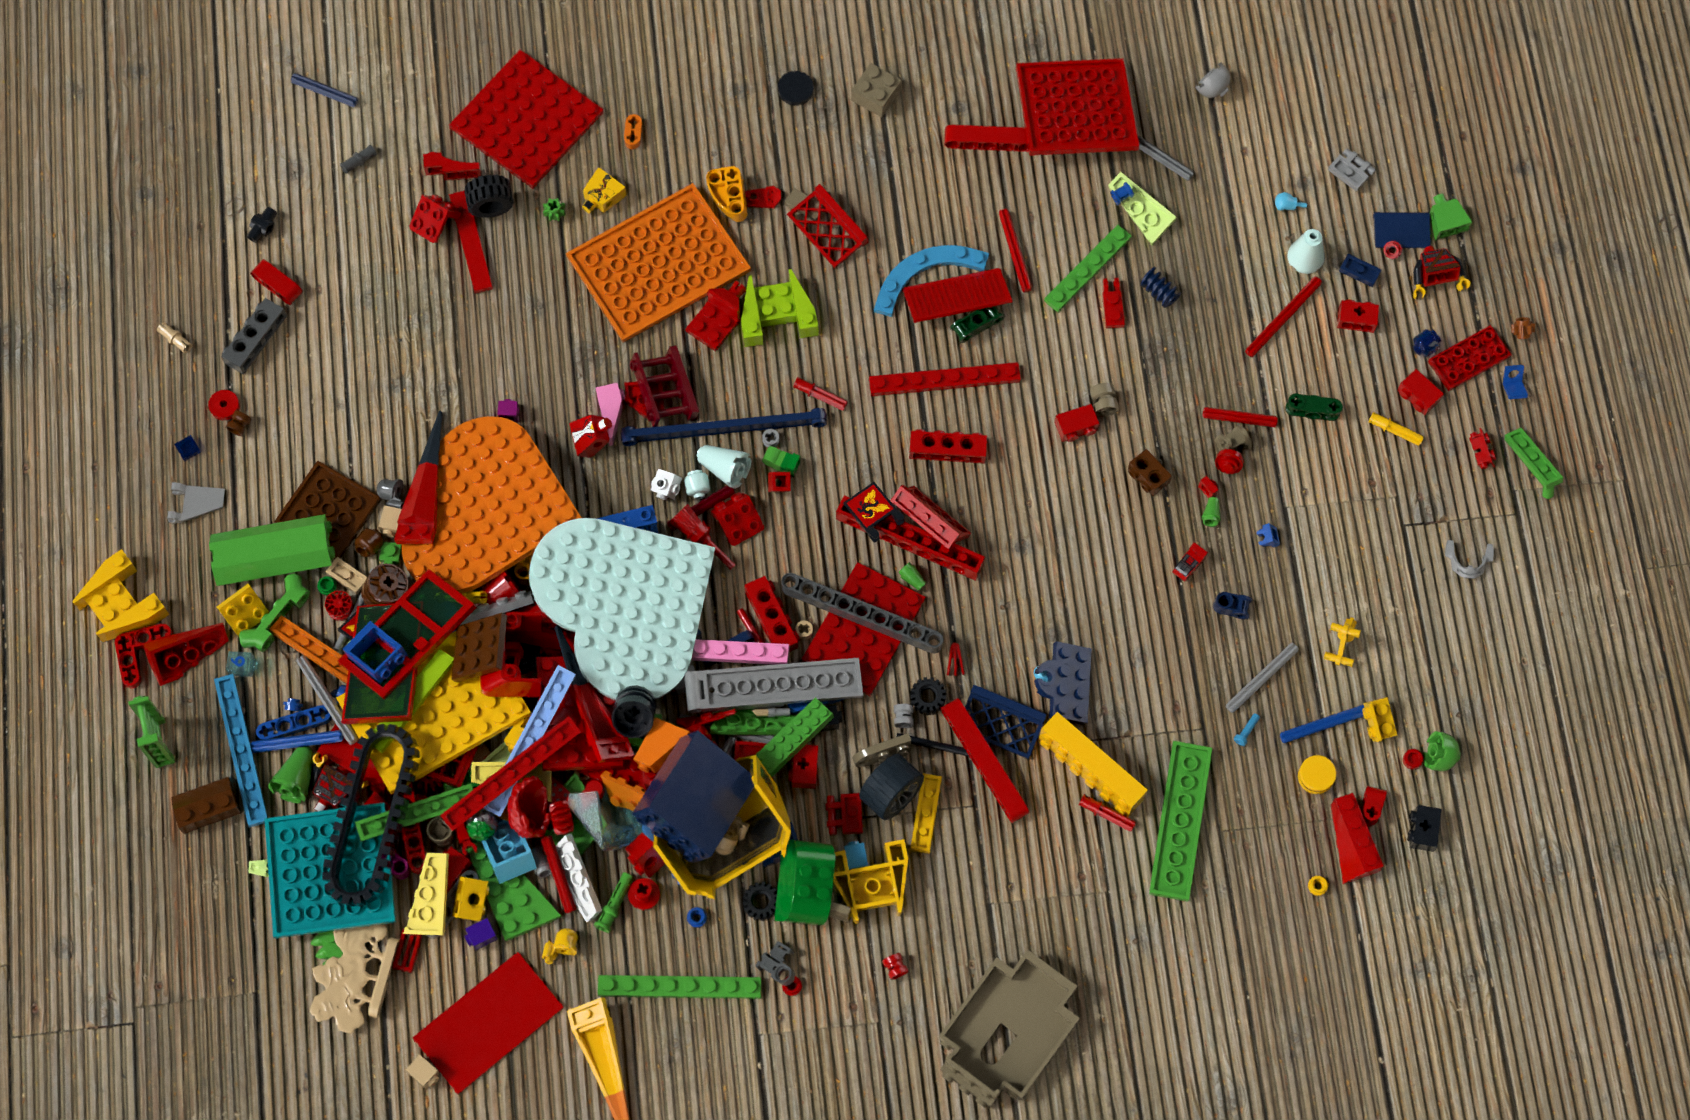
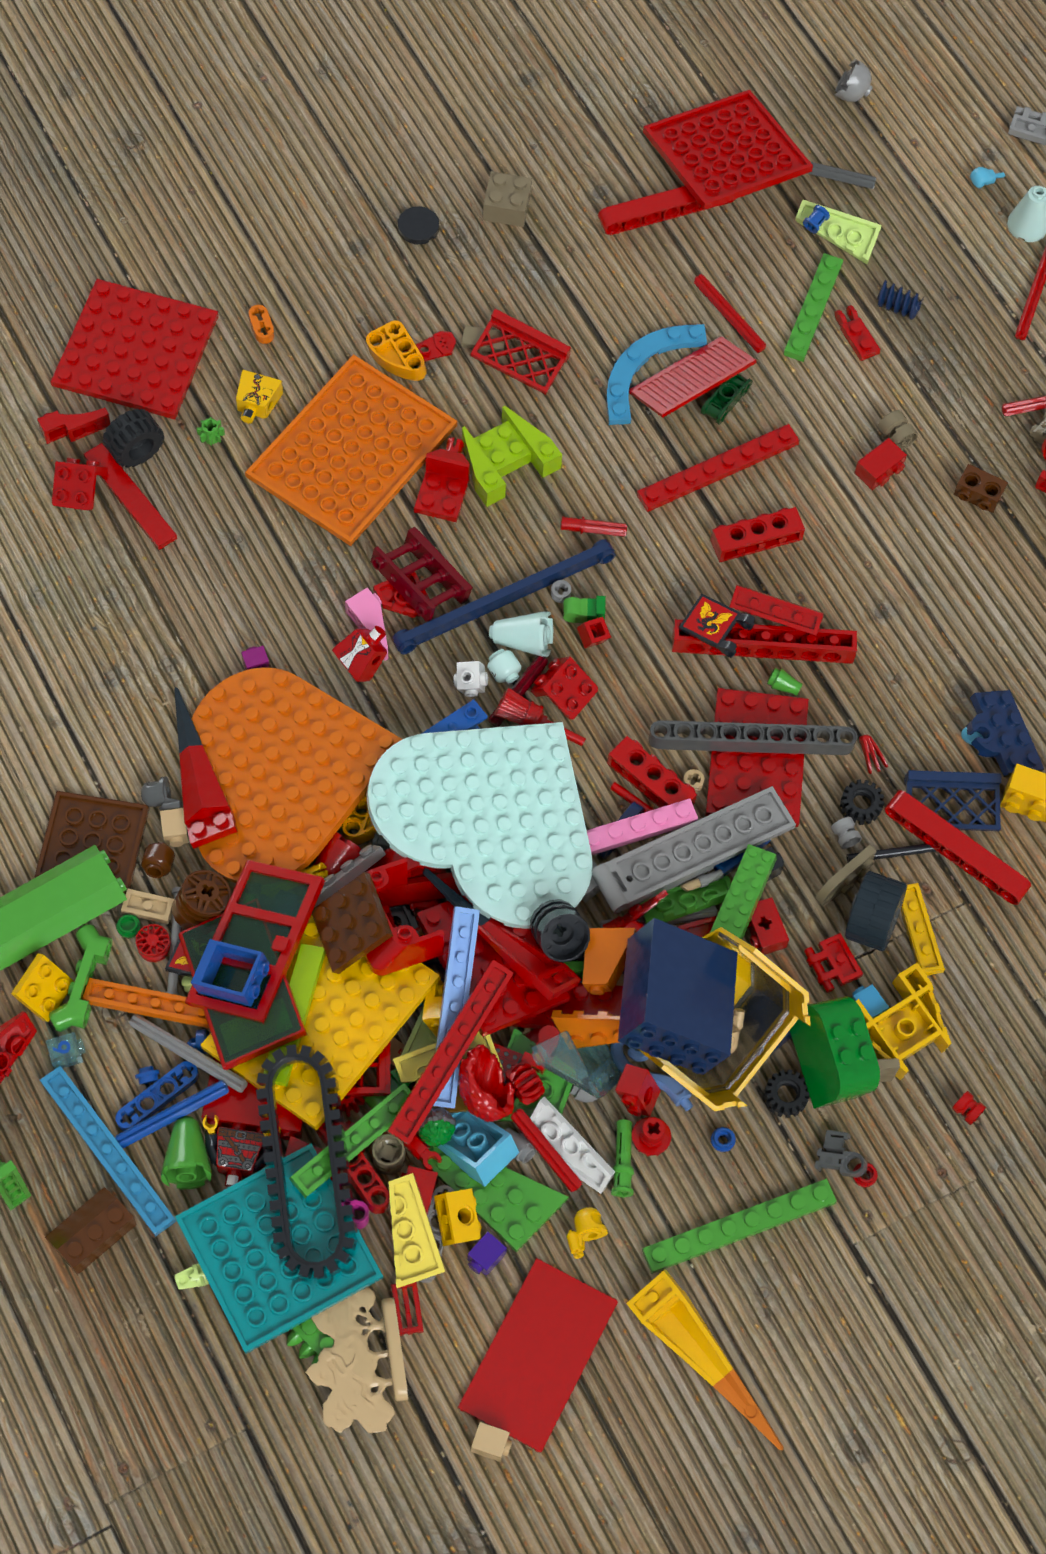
camera: 25 degrees left, 5 degrees down
(390, 553) = (186, 862): bright green plate -> none

